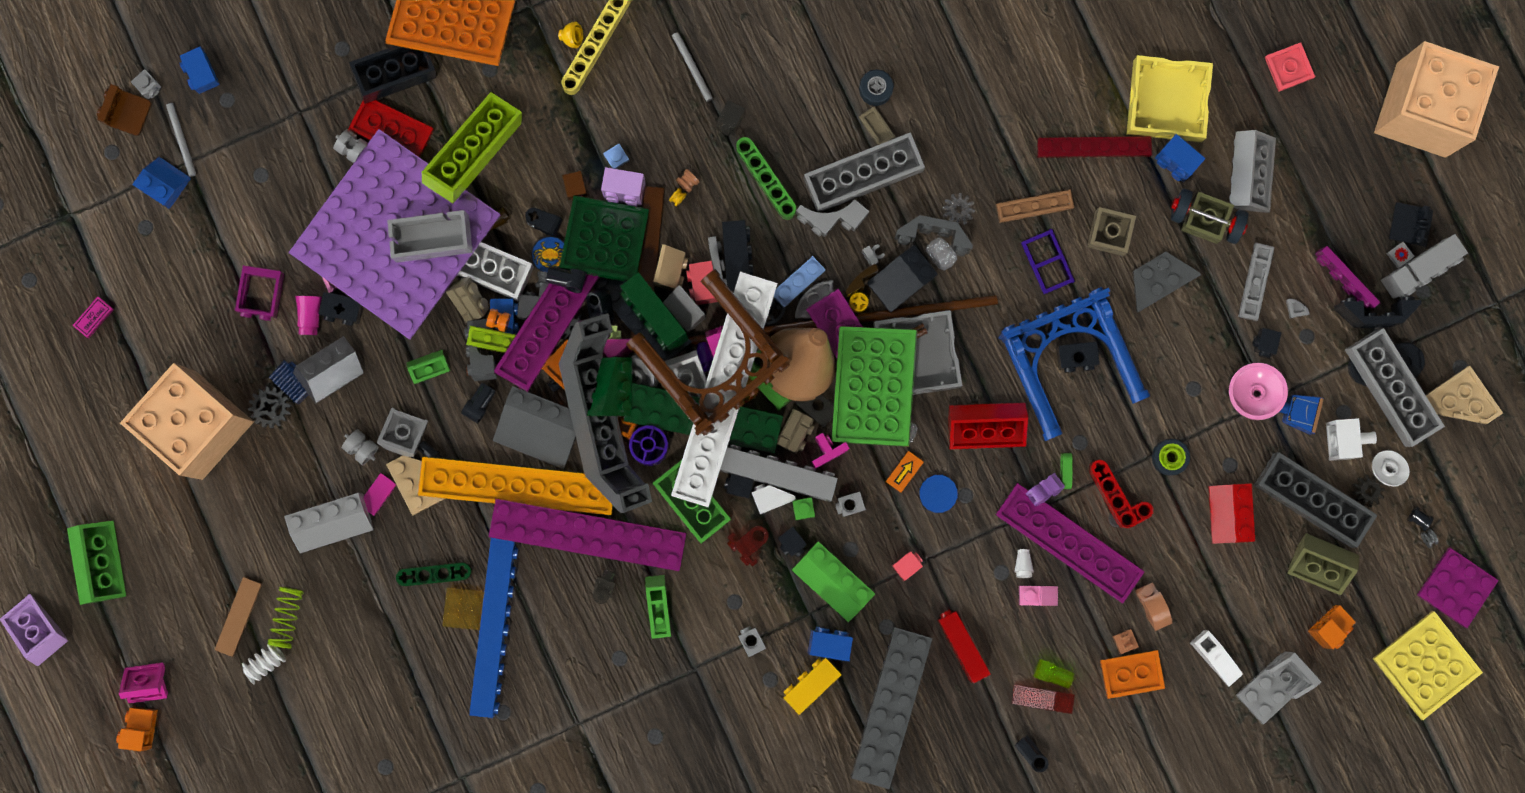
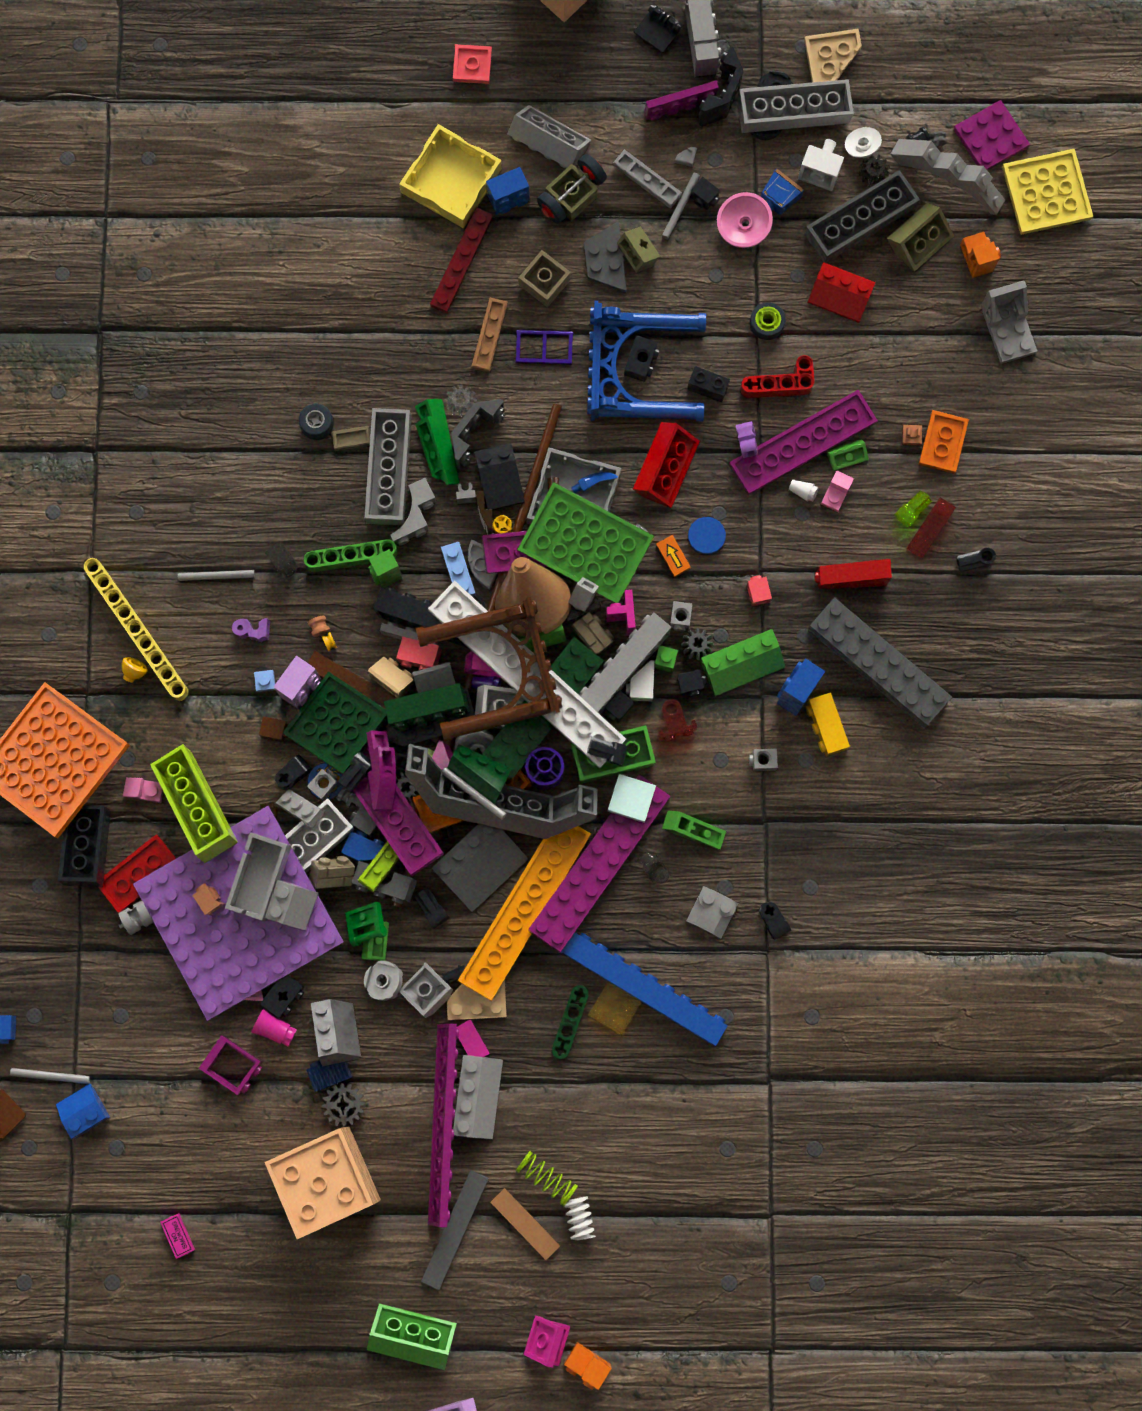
camera: 60 degrees left, 5 degrees down
(205, 557) = (455, 1229): none -> dark grey tile
(295, 501) = (442, 1125): none -> magenta plate
(357, 445) = (418, 1037): light grey wheel -> none
(391, 201) = (208, 899): none -> nougat window
(399, 399) = (393, 984): none -> light grey plate
(419, 277) = (291, 905): none -> light grey slope
(441, 347) = (362, 918): none -> green plate
(467, 96) = (143, 790): none -> bright pink slope
(498, 320) = (368, 849): orange wheel -> none
(512, 243) = (300, 808): none -> light grey plate
(536, 250) = (323, 793): none -> light grey brick
(578, 301) = (383, 773): none -> magenta slope
(590, 657) = (712, 912): none -> light grey slope
(591, 392) = (473, 793): none -> light grey bar
(607, 719) = (775, 924): none -> black piece
(655, 116) = (242, 629): none -> medium lavender leg
(659, 537) = (631, 798): none -> light aqua tile
(688, 500) = (612, 752): none -> black piece
(764, 215) = (384, 569): none -> bright green brick
(825, 406) = (583, 594): none -> light grey brick
(829, 525) = (689, 644): none -> dark grey gear
(910, 204) = (436, 440): none -> green wedge
(936, 361) = (590, 480): none -> blue bar
(941, 253) = (493, 432): clear gear -> none
(1066, 470) = (737, 414): bright green beam -> none
(1078, 590) = (847, 454): none -> bright green slope
(1082, 429) = (708, 384): none -> black brick
(1155, 606) = (894, 393): nougat brick -> none
(1182, 305) = (638, 249): none -> olive brick
(1216, 657) = (960, 362): white slope -> none
(1245, 325) = (680, 206): none -> light grey bar
(1400, 255) = (681, 49): light grey tile -> none
(1403, 562) = (951, 167): none -> light grey arch

